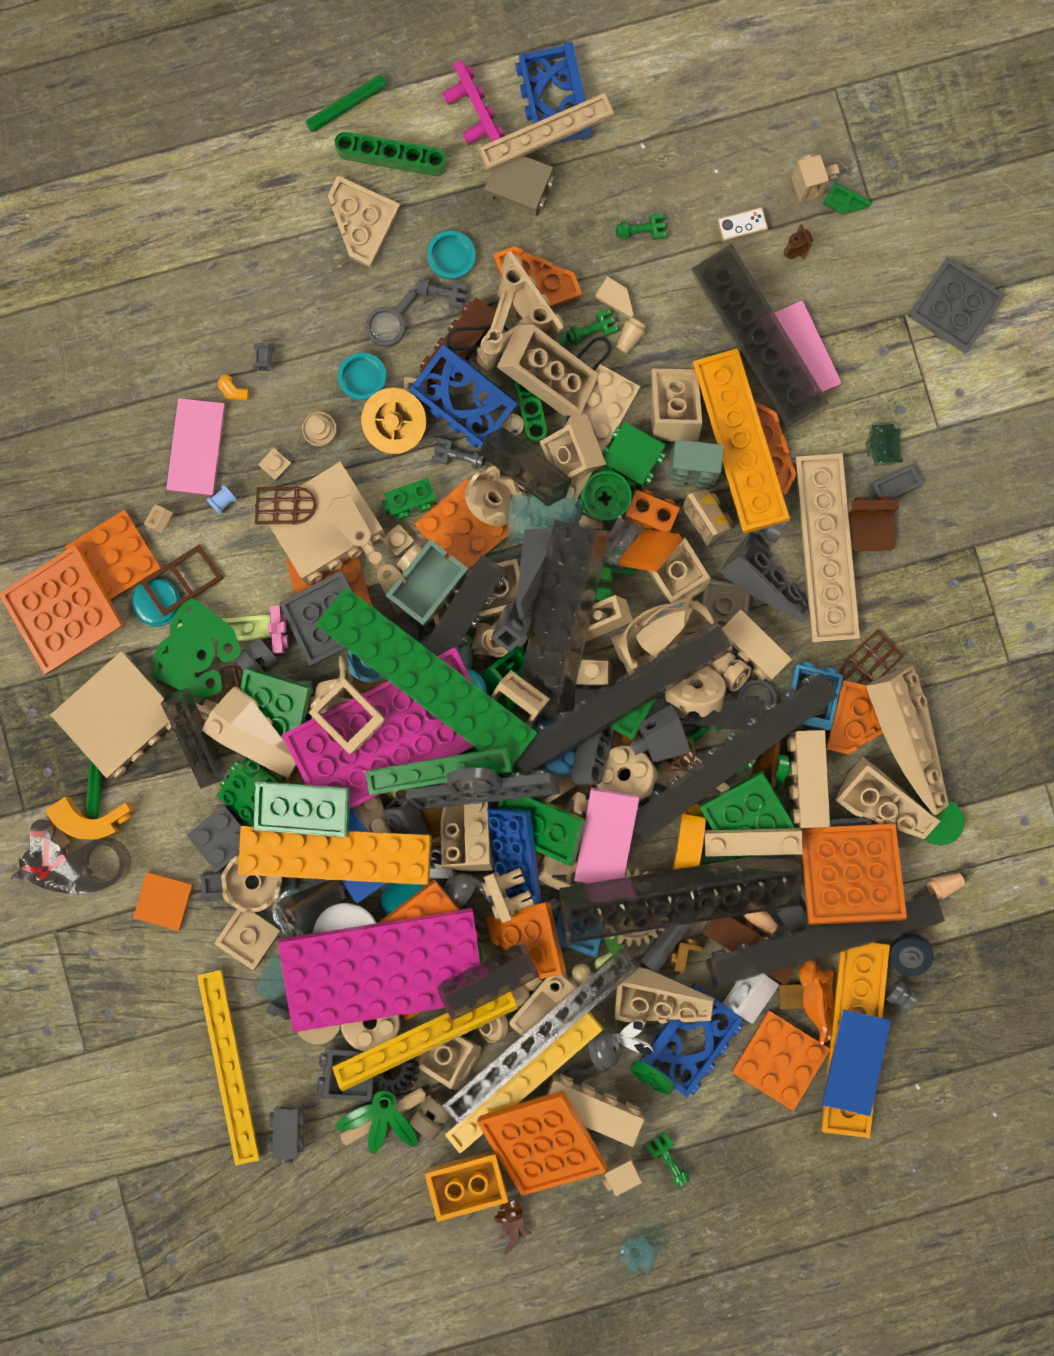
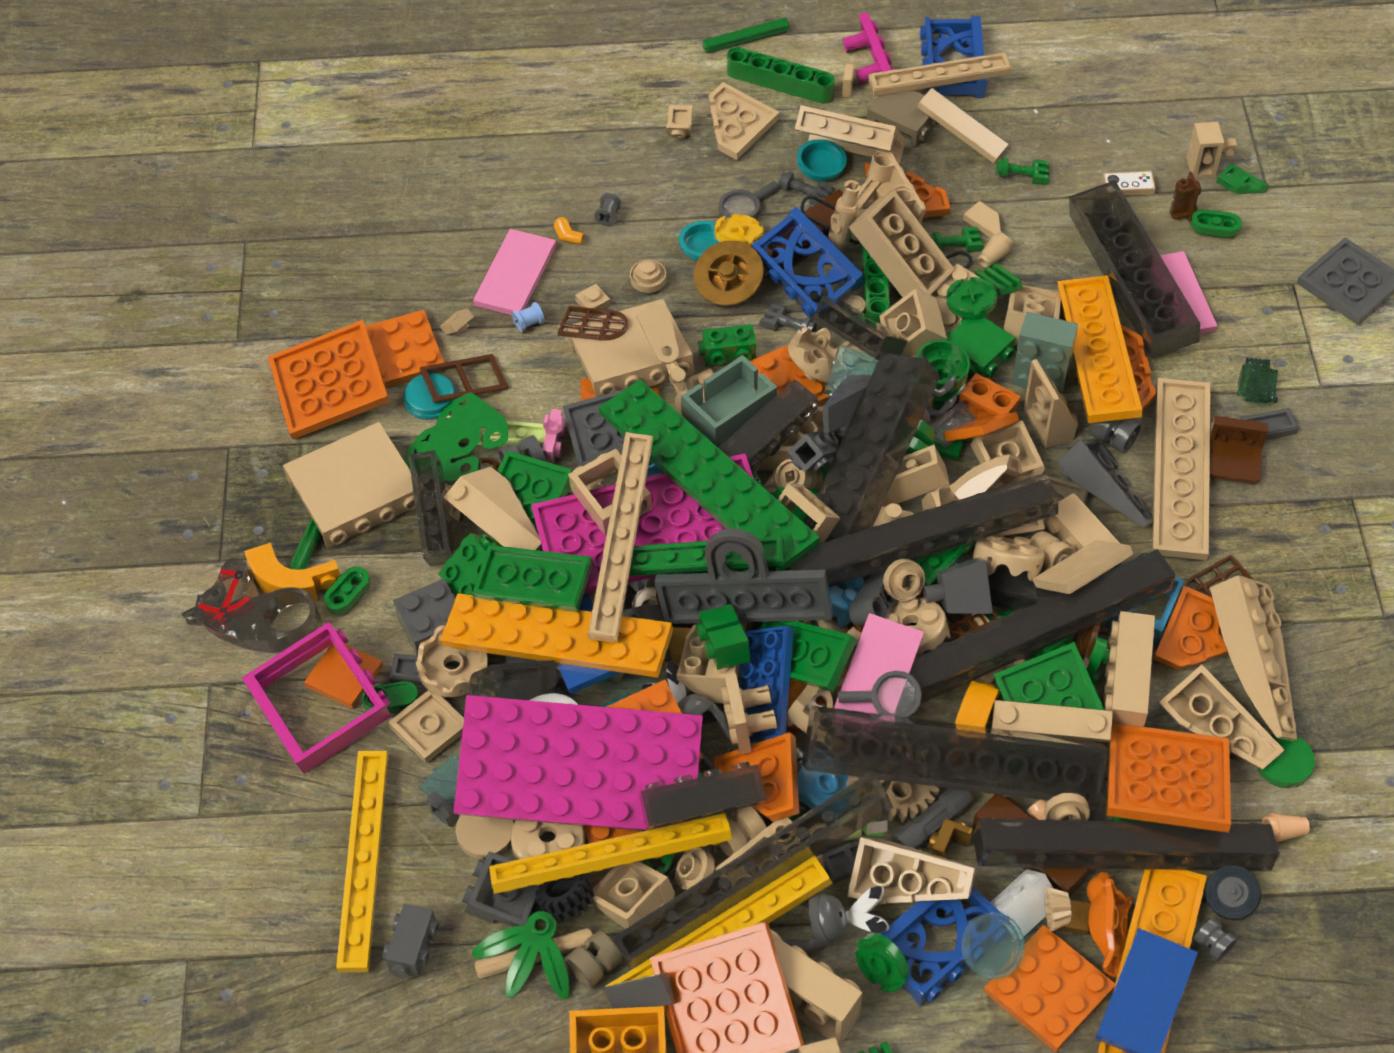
camera: 10 degrees right, 30 degrees down
(122, 961) = (291, 659): none -> dark pink window
(141, 821) = (345, 591): none -> green plate
(213, 915) = (399, 695): none -> green piece
(306, 233) = (679, 121): none -> tan bracket
(369, 767) = (620, 538): none -> tan tile
(392, 363) = (738, 228): none -> yellow tile
(458, 148) = (848, 80): none -> tan tile
(473, 828) = (723, 637): none -> green piece
(474, 1146) = (641, 992): none -> dark grey slope
(475, 237) = (850, 133): none -> tan panel
(577, 189) = (962, 125): none -> tan tile
(612, 743) = (904, 579): none -> tan plate
(620, 408) = (971, 298): none -> green tile
(623, 856) = (892, 694): none -> piece
(630, 360) = (1002, 277): none -> green tile
(734, 1048) = (993, 945): none -> clear light blue piece
(760, 697) = (1083, 566): none -> tan tile
(775, 921) = (1067, 807): none -> tan plate
(779, 1003) = (1057, 908): none -> tan piece
(827, 259) = (1216, 223): none -> green plate

